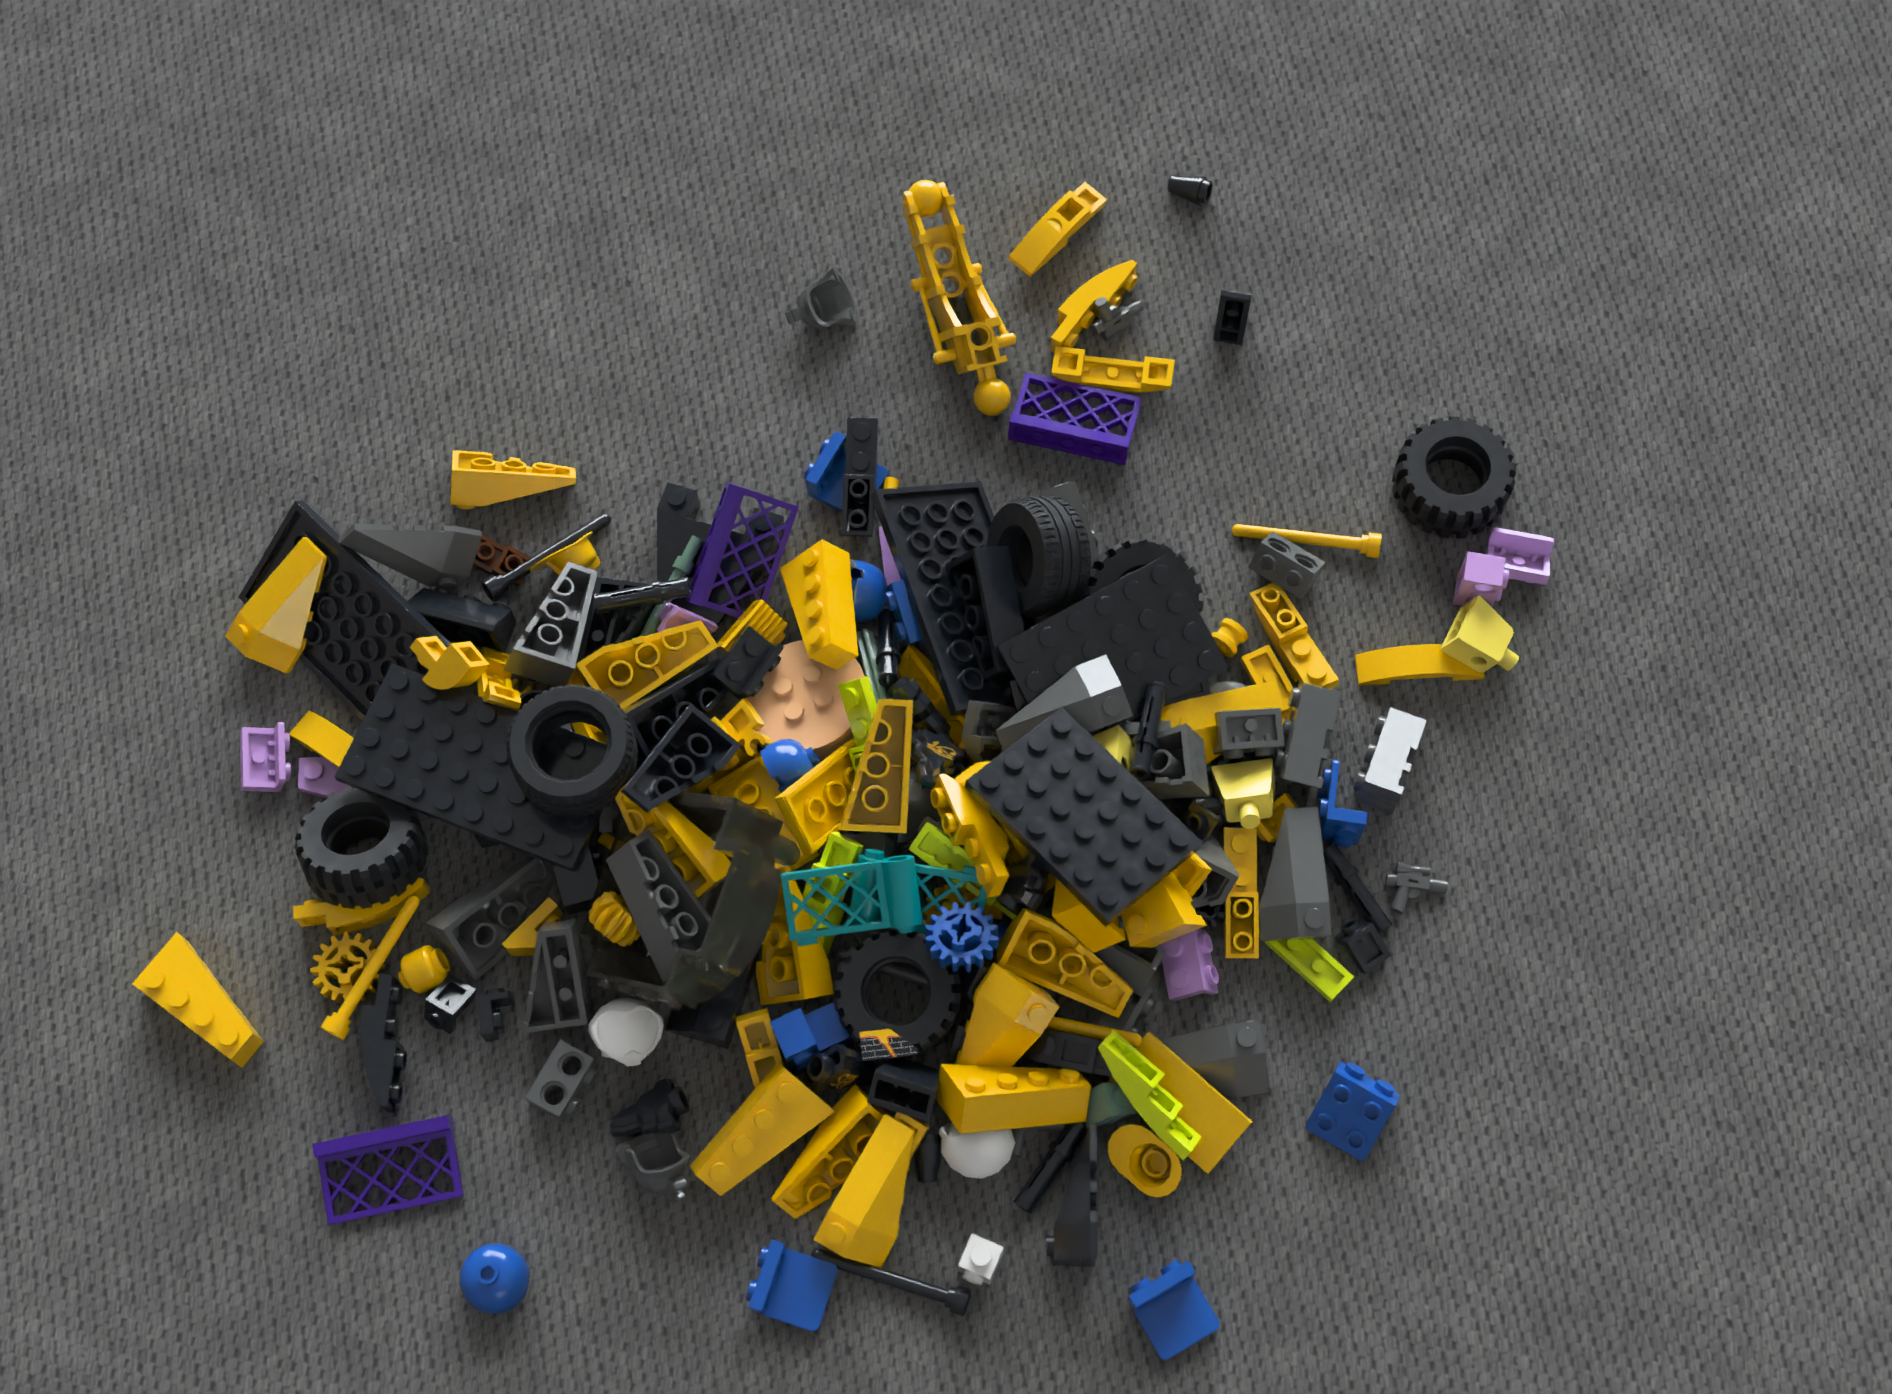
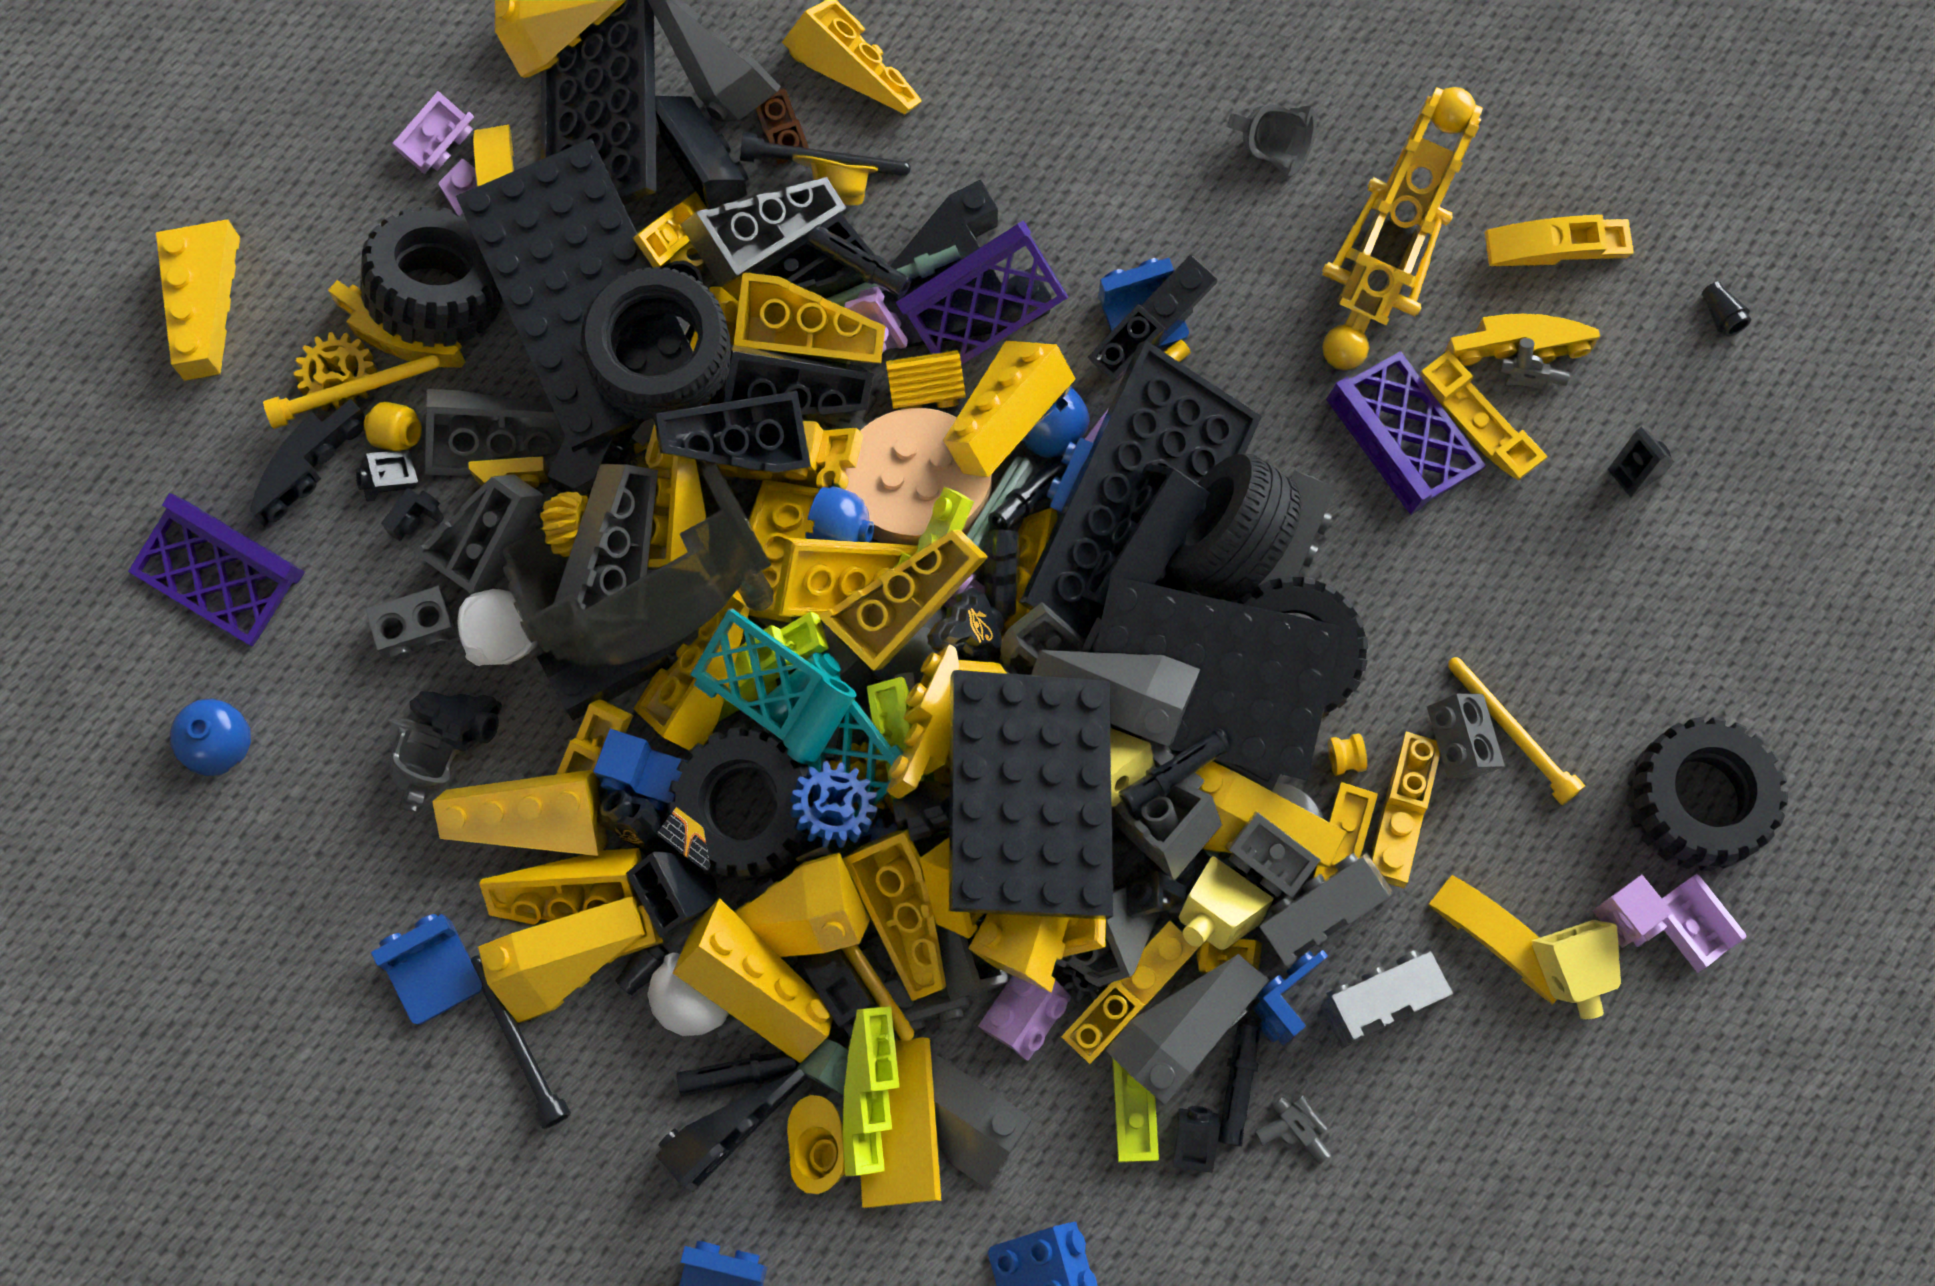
camera: 40 degrees right, 5 degrees up
(451, 666) = (630, 178): yellow brick -> none
(747, 664) = (892, 400): black bracket -> none
(980, 1260) = (598, 1095): white brick -> none

